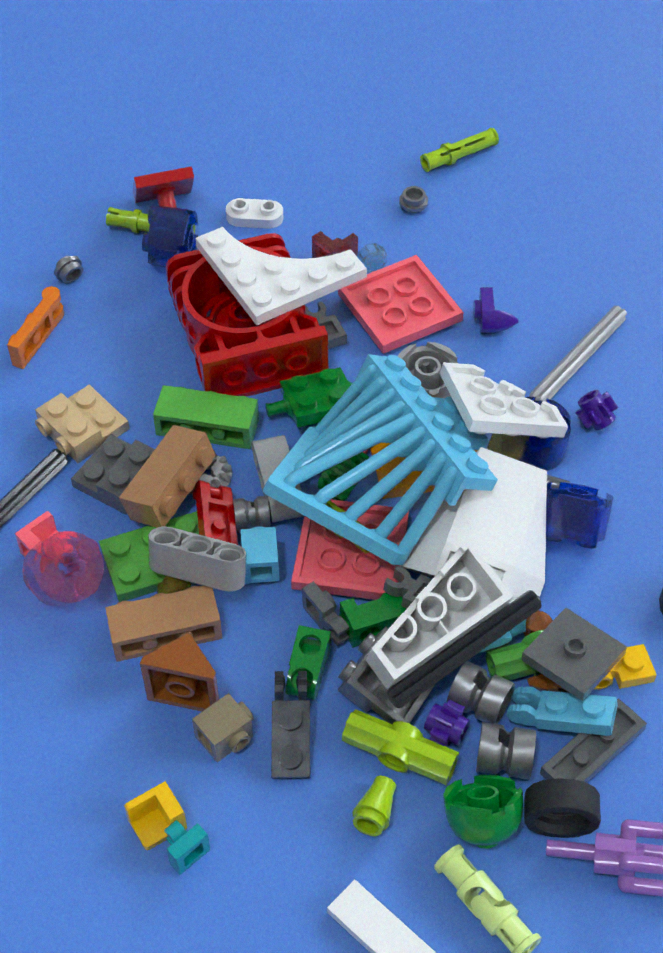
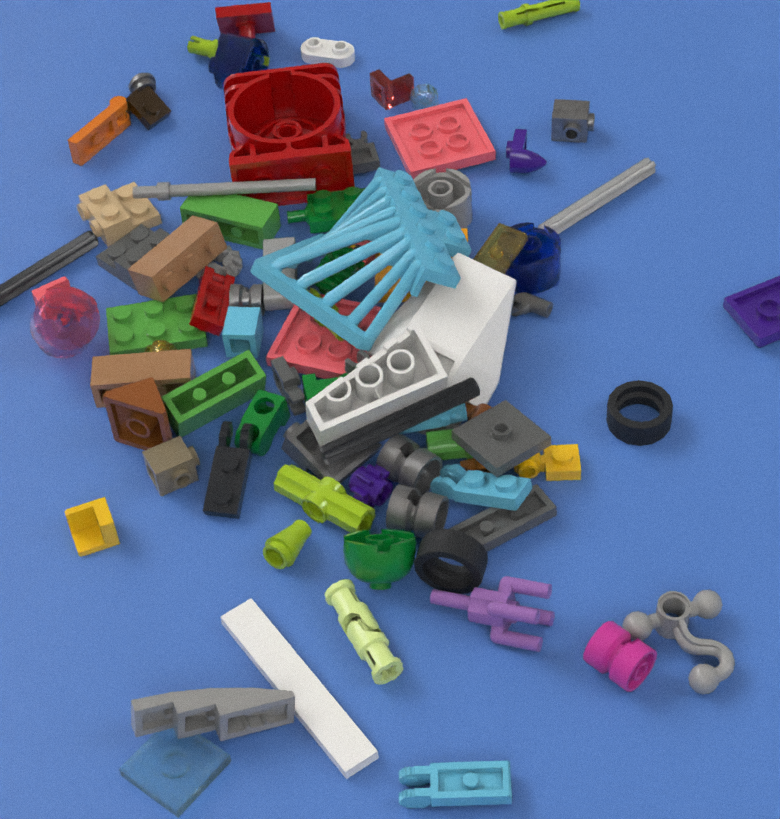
camera: 15 degrees right, 5 degrees down
(81, 294) = (147, 107): none -> dark brown bracket
(133, 397) = (164, 190): none -> light grey bar
(185, 846) = (111, 553): teal tile -> none
(197, 558) = (182, 324): light grey beam -> none
(252, 633) = (214, 393): none -> bright green brick
(275, 284) = (314, 104): white plate -> none
(413, 199) = (481, 51): flat silver plate -> none
(498, 407) = (479, 220): white plate -> none
(529, 270) = (571, 120): none -> flat silver brick
(577, 514) = (541, 325): clear blue brick -> none
(596, 409) = (596, 244): dark purple gear -> none

